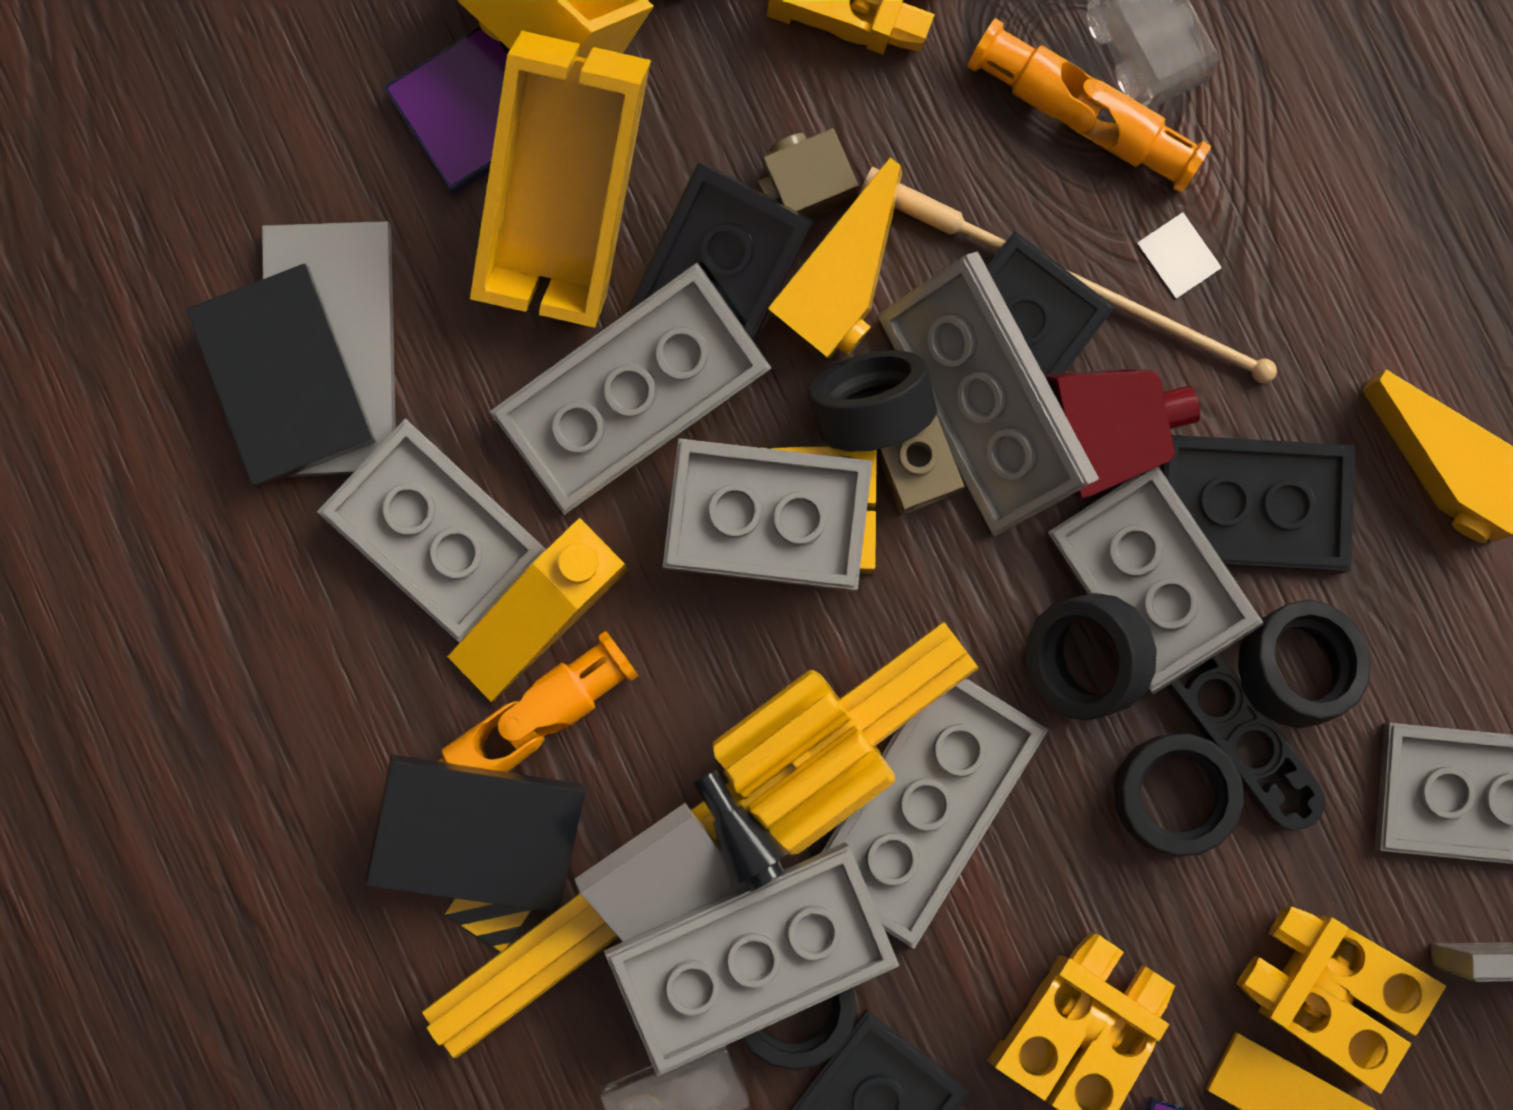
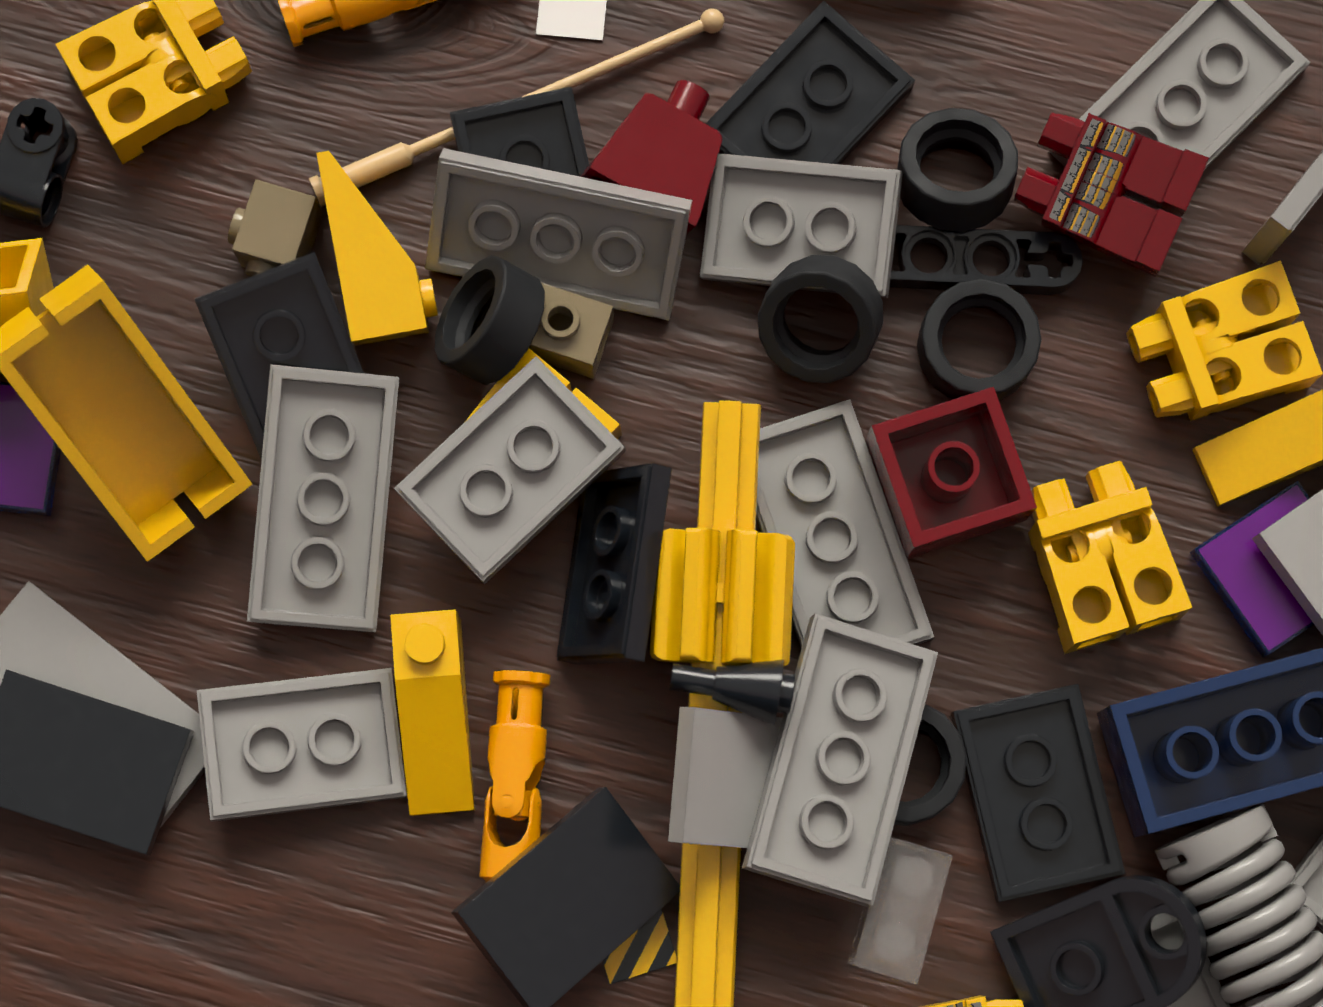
camera: 50 degrees left, 5 degrees down
(760, 658) = (614, 566): none -> black tile
(1053, 858) = (950, 472): none -> dark red brick
(1400, 781) = (1102, 169): none -> dark red hips

